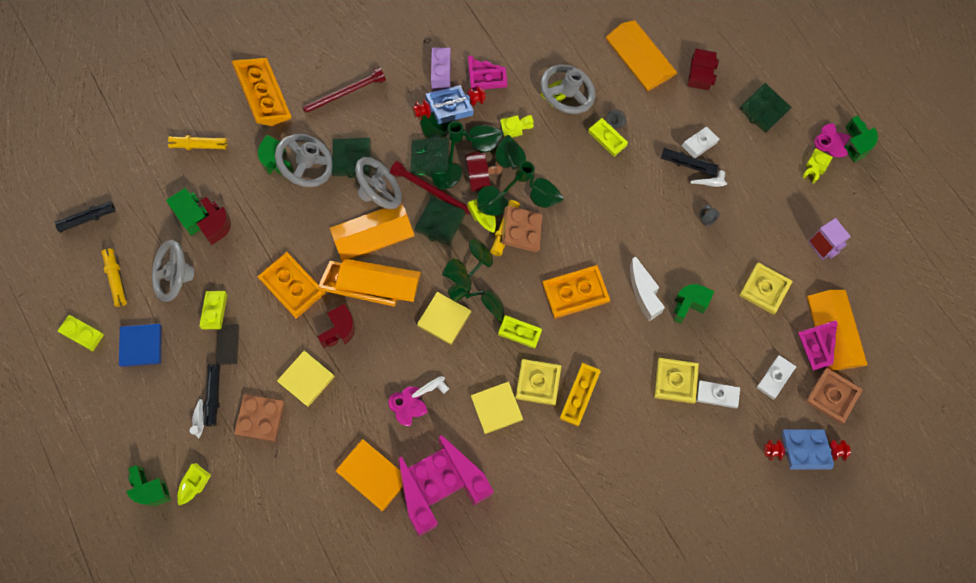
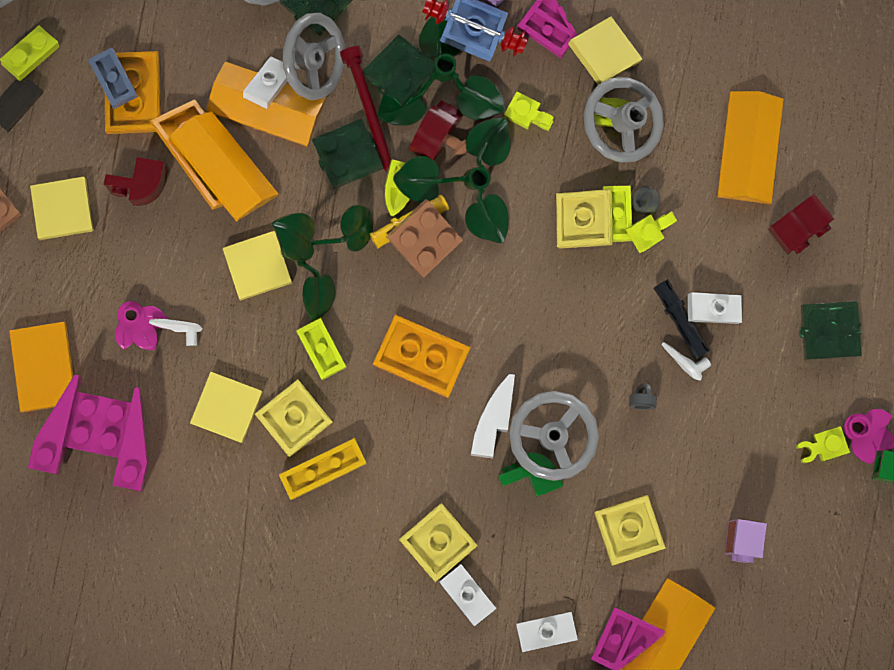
camera: 40 degrees right, 10 degrees up
(275, 283) = (112, 78): none -> sand blue plate
(364, 217) = (266, 83): none -> white plate
(526, 64) = (605, 51): none -> light yellow tile
(594, 152) = (584, 218): none -> light yellow tile
(631, 132) = (648, 231): none -> neon yellow plate
(686, 269) = (566, 469): none -> light grey piece

